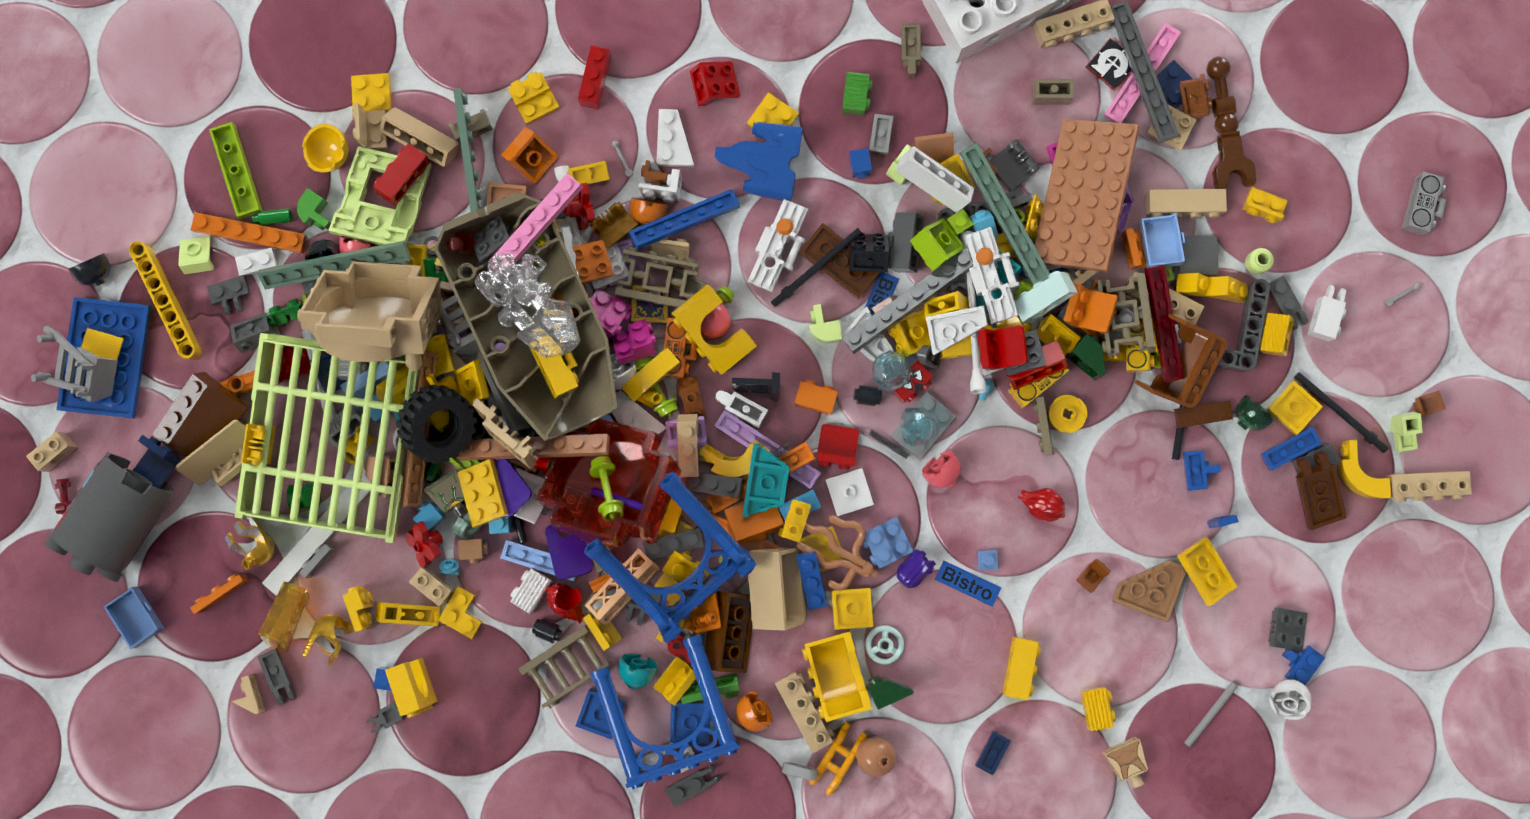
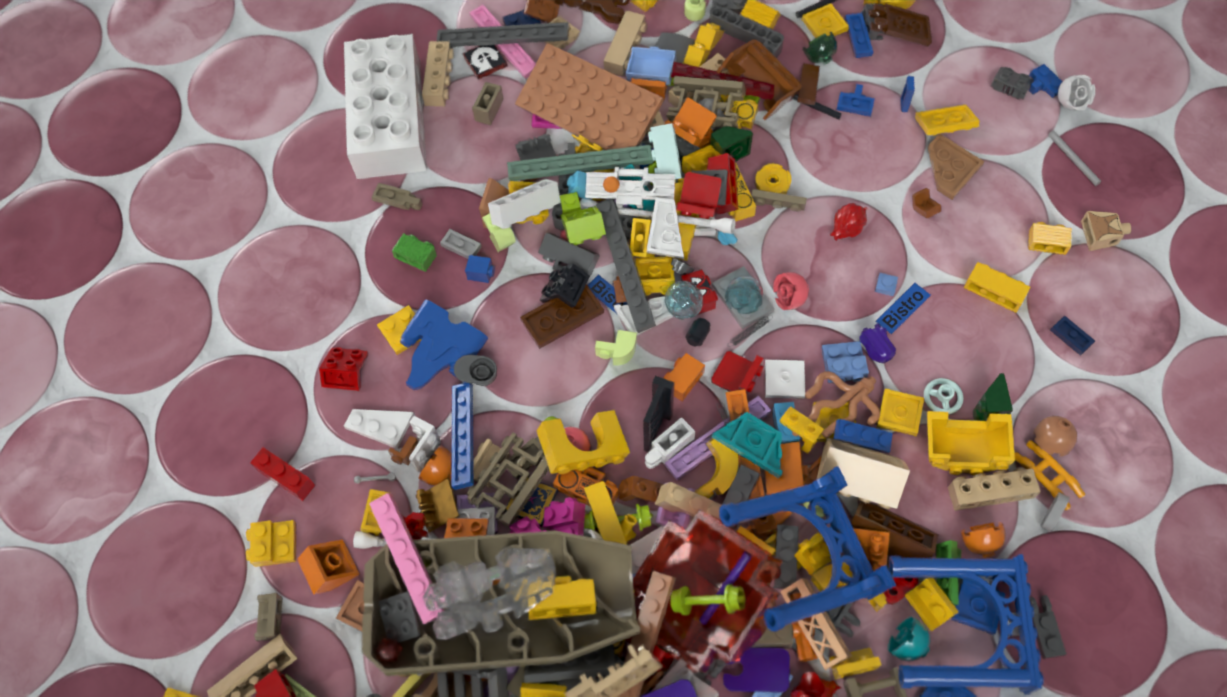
camera: 70 degrees left, 20 degrees down
(468, 154) = (299, 624): sand green plate -> none
(752, 204) = (476, 370): none -> dark grey cap
(772, 243) = (520, 365): white piece -> none
(788, 291) = (571, 368): black bar -> none

